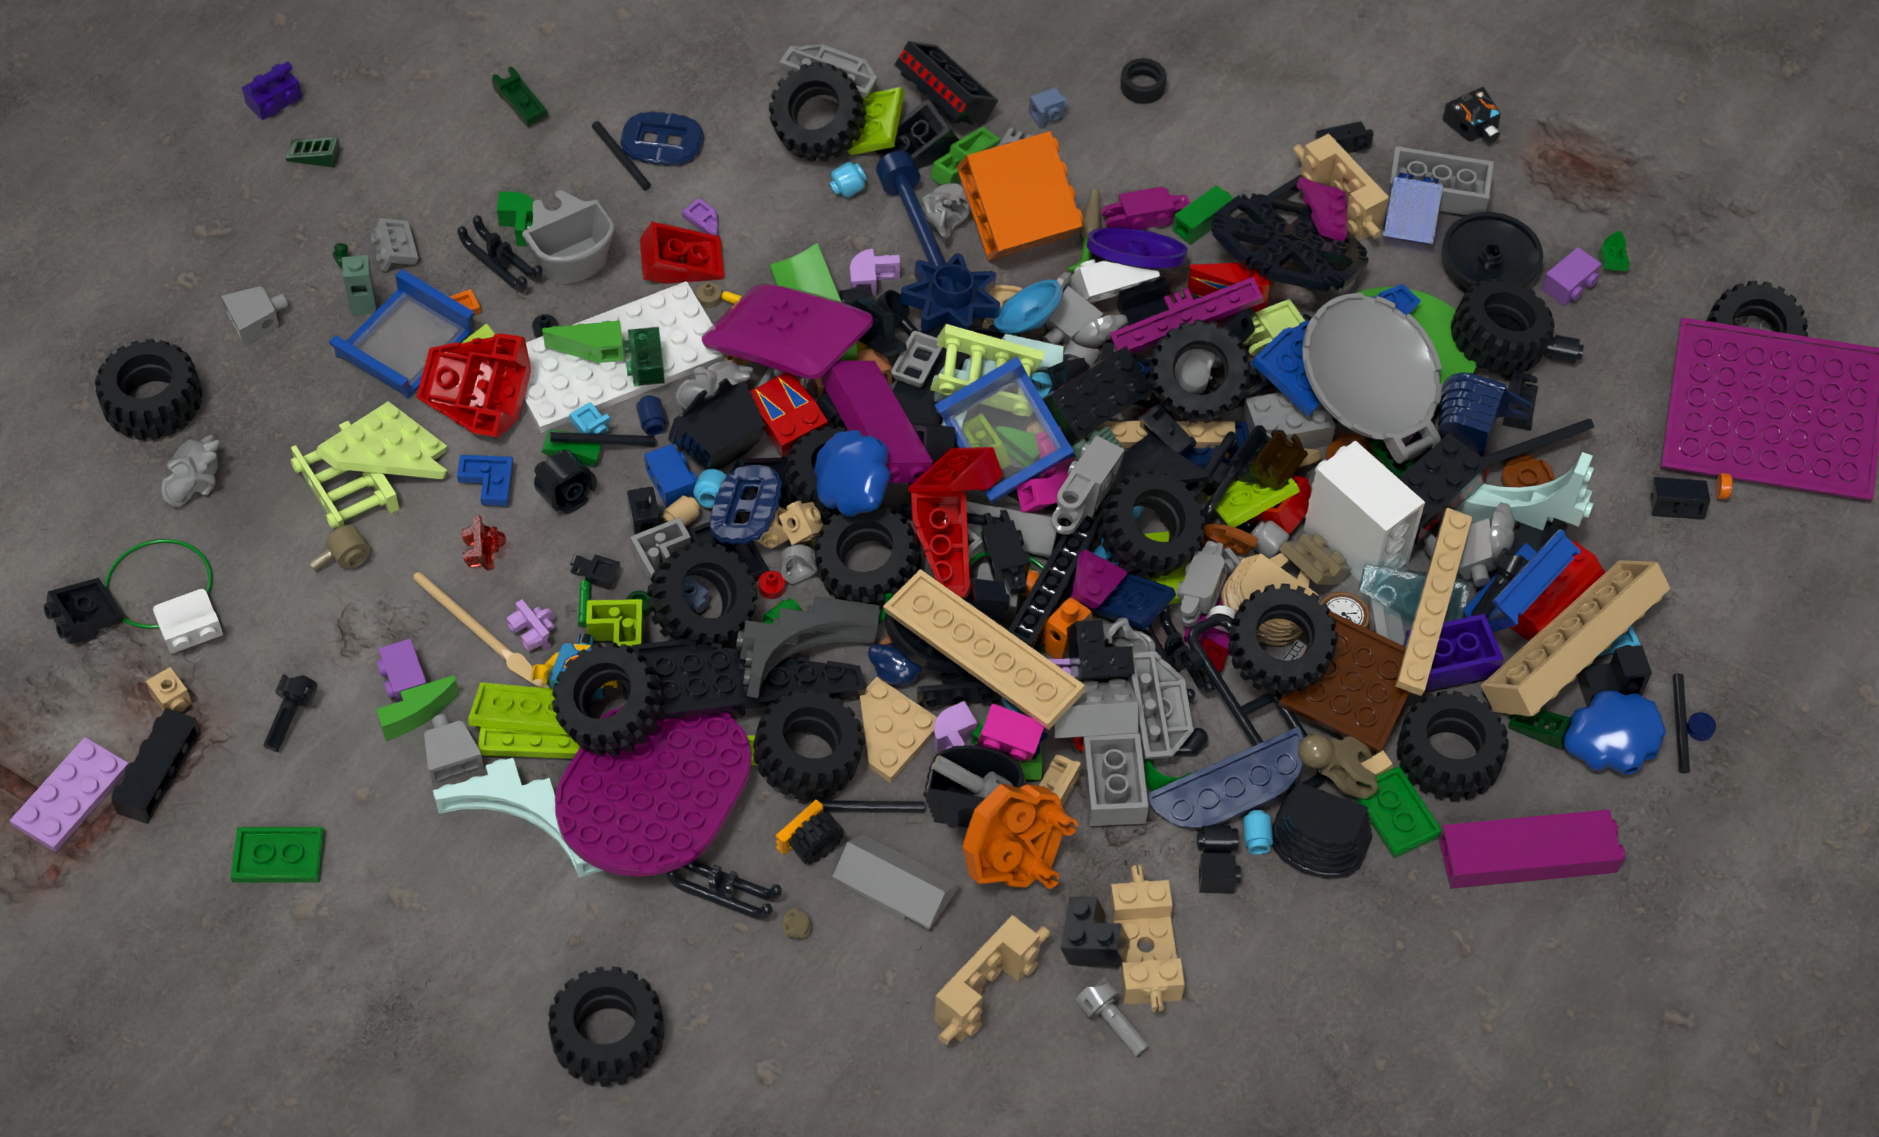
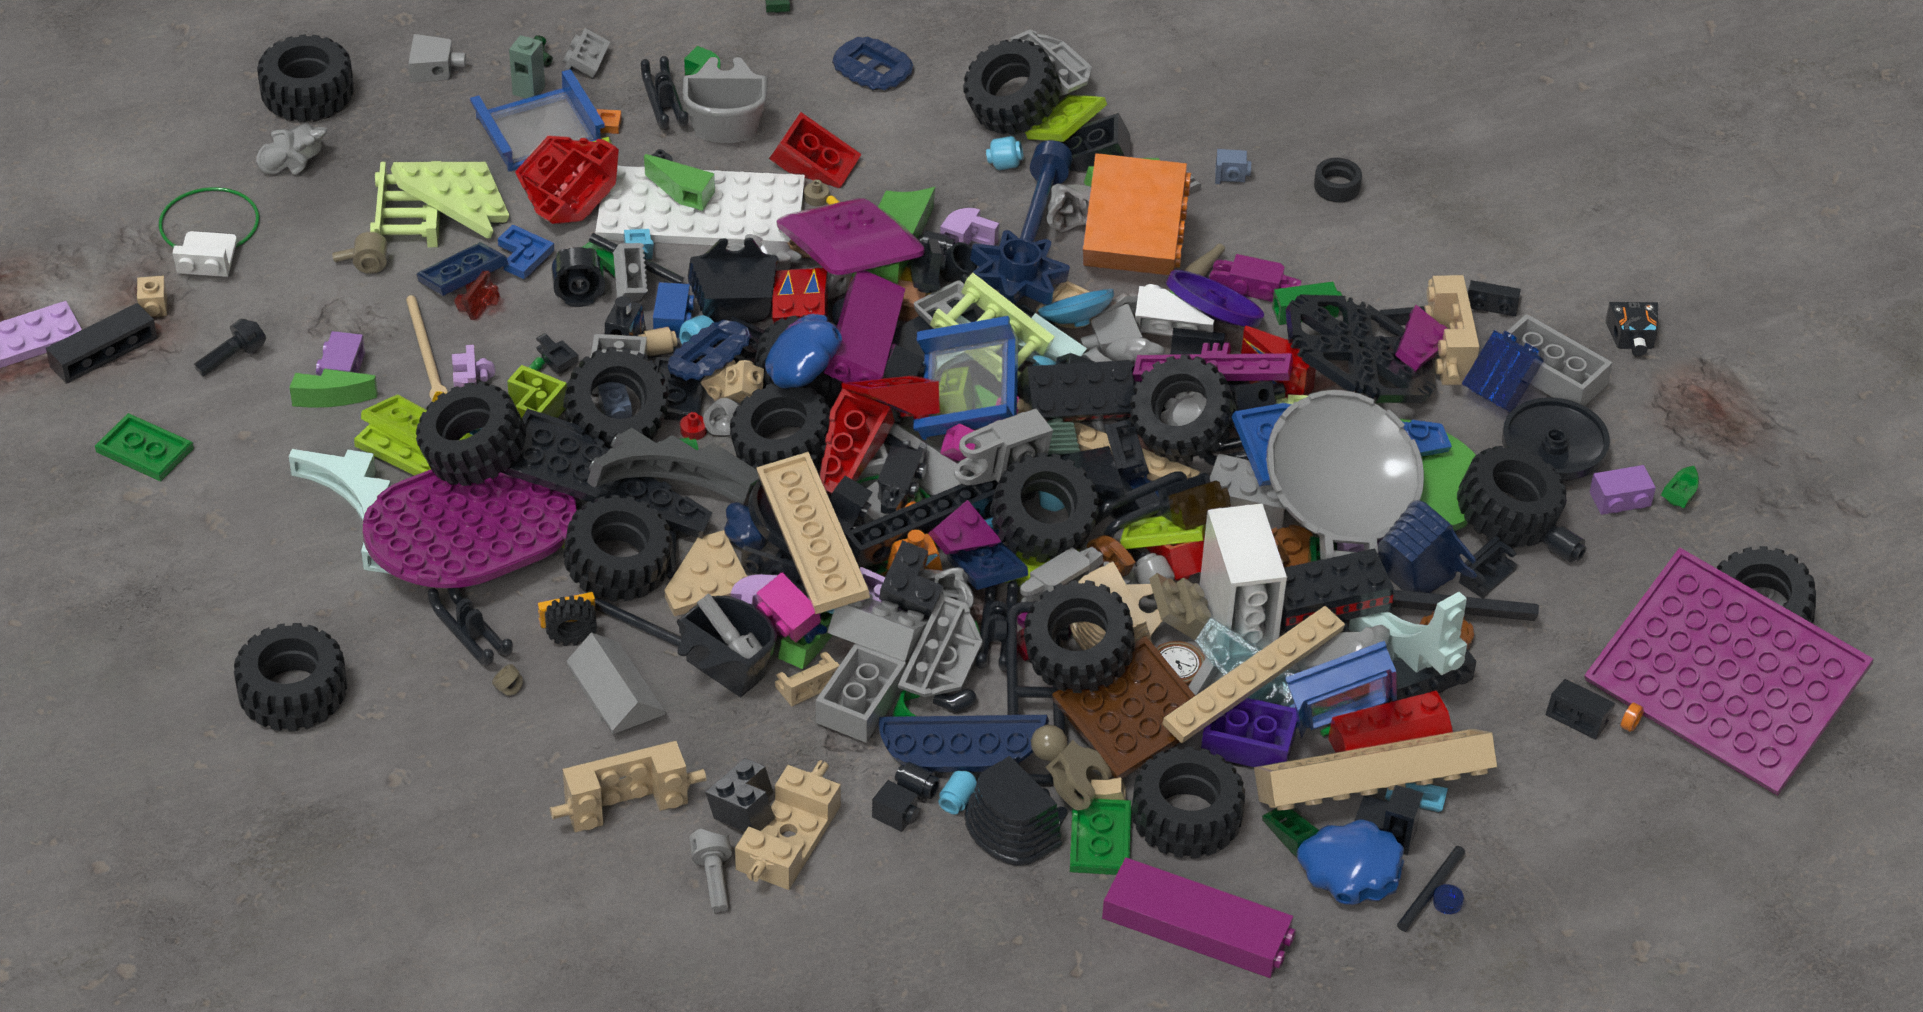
camera: 30 degrees right, 10 degrees down
(81, 610) = (133, 211): black plate -> none
(446, 523) = (461, 268): none -> dark blue tile
(450, 750) = (331, 429): light grey torso -> none
(611, 456) = (630, 271): none -> light grey brick
(621, 155) = (827, 63): black bar -> none
(646, 356) = (718, 211): clear green brick -> none
(651, 415) = (691, 249): dark blue brick -> none
(701, 216) = (859, 134): medium lavender tile -> none
(945, 83) = (1148, 110): black brick -> none
(1016, 836) = (709, 672): orange brick -> none

